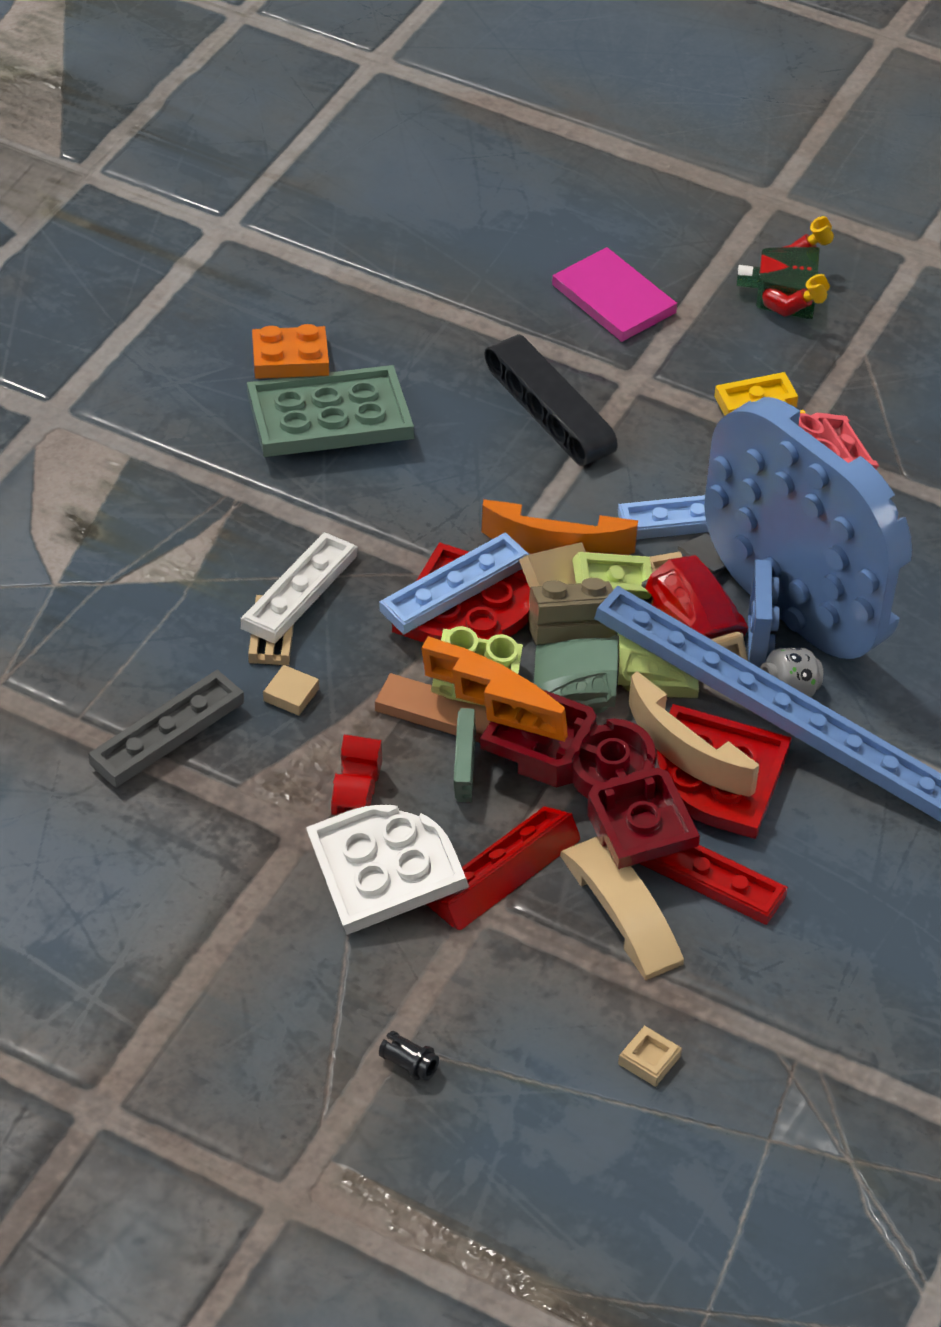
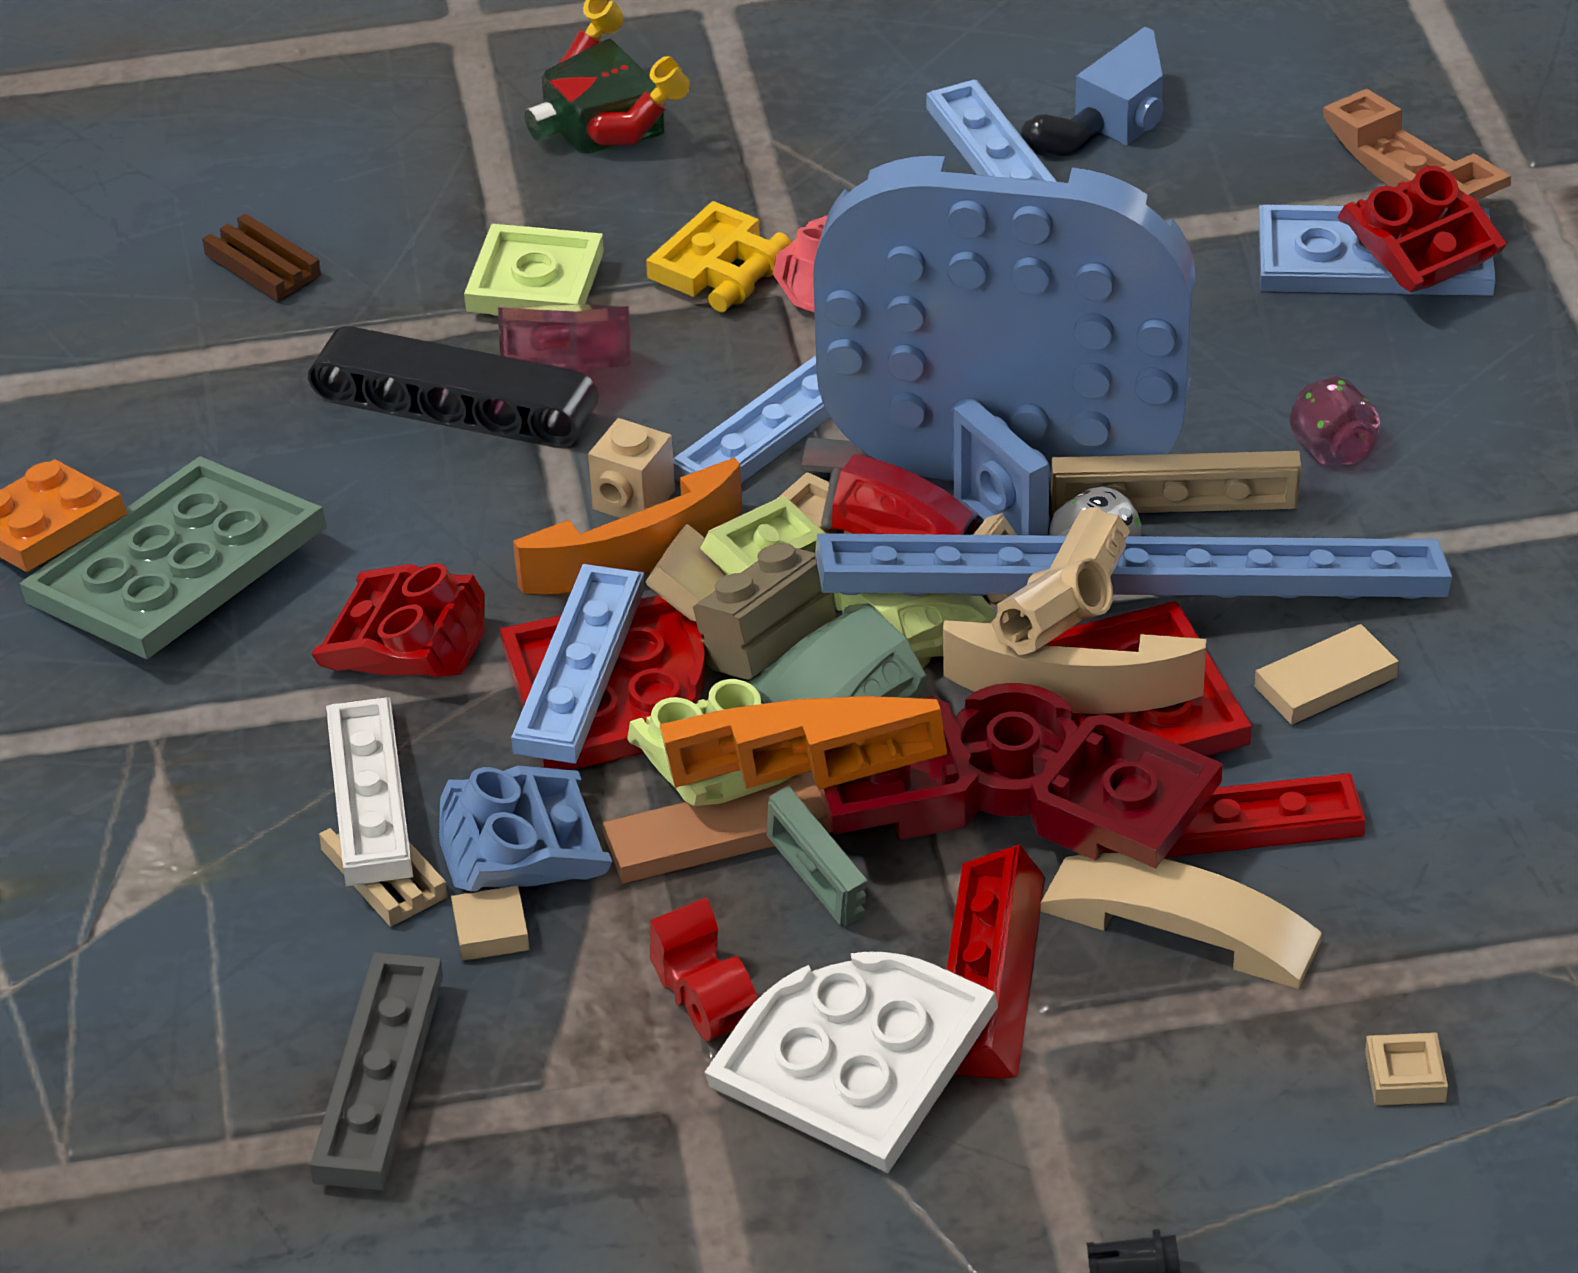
camera: 35 degrees left, 5 degrees down
(348, 651) = (518, 829): none -> medium blue slope
(400, 514) = (407, 623): none -> red slope
(531, 256) = (269, 253): none -> reddish brown tile
(587, 495) = (631, 469): none -> tan brick
(614, 294) = (395, 226): dark pink tile -> none
(629, 405) = (567, 335): none -> clear pink slope
(655, 360) = (533, 268): none -> yellowish green plate
(692, 694) = (1068, 591): none -> tan piece
(837, 827) = (1326, 674): none -> tan tile
(867, 675) = (1184, 480): none -> tan tile

